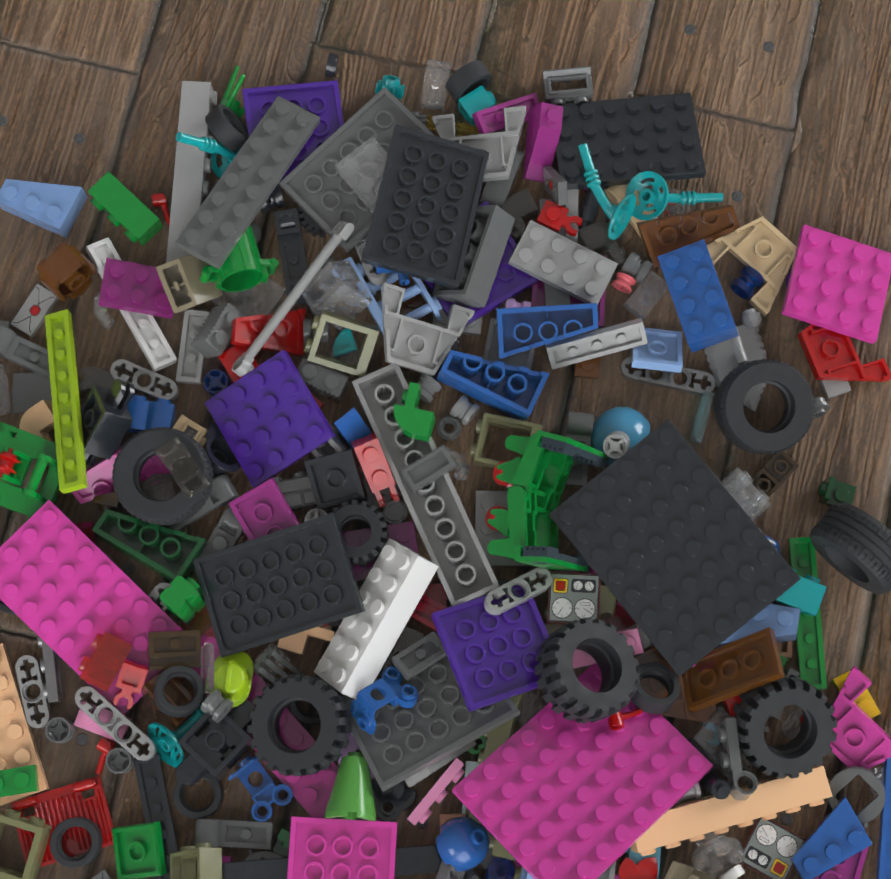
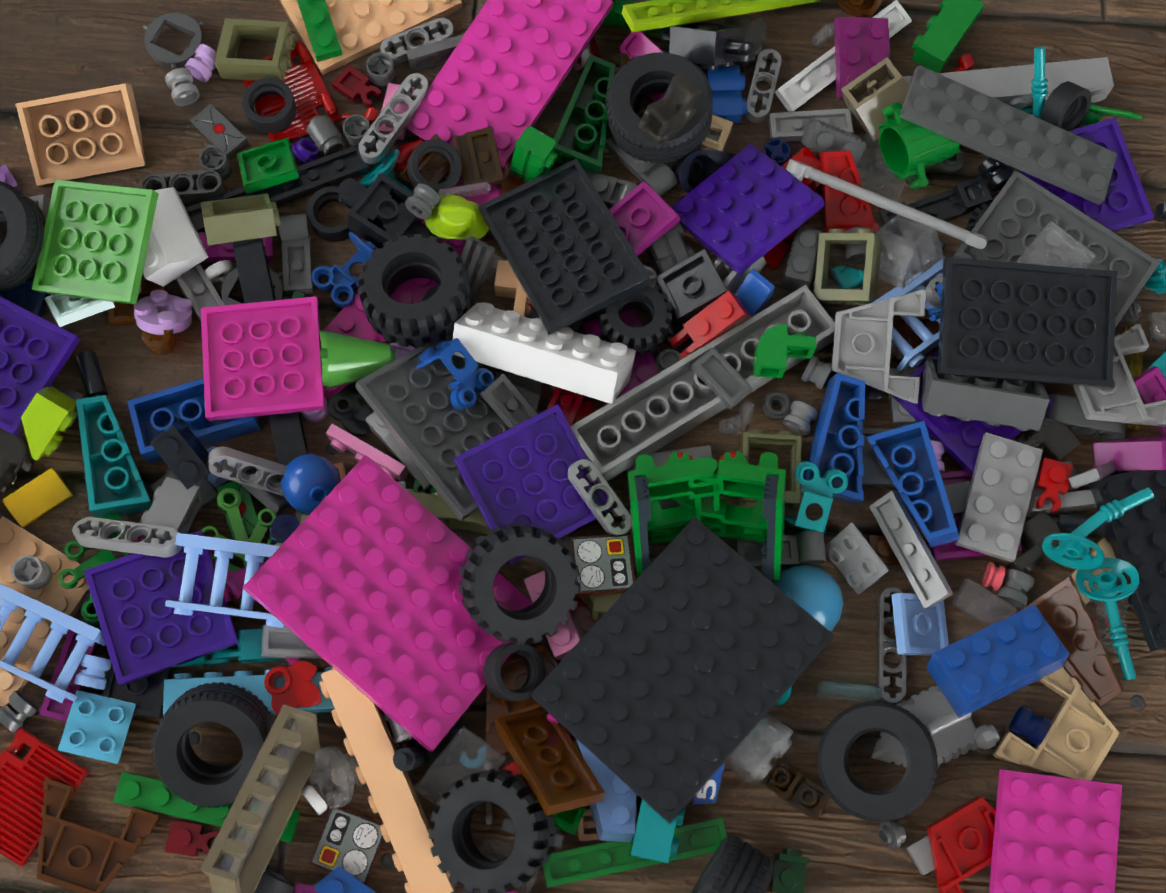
camera: 80 degrees right, 5 degrees down
(69, 757) = (355, 85): none -> dark red plate
(105, 660) = (456, 90): clear red brick -> none
(117, 791) = (325, 135): none -> dark grey brick
(129, 813) = (305, 150): none -> dark purple plate
(130, 680) = (440, 121): plate -> none
(146, 715) = (405, 153): none -> red arm
(540, 409) = (818, 491): none -> teal piece
(595, 390) = (855, 559): none -> light grey hinge
(612, 447) = (793, 579): light grey wheel -> none
(616, 720) = (470, 629): red hand -> none
(731, 761) = (442, 770): dark grey plate -> none

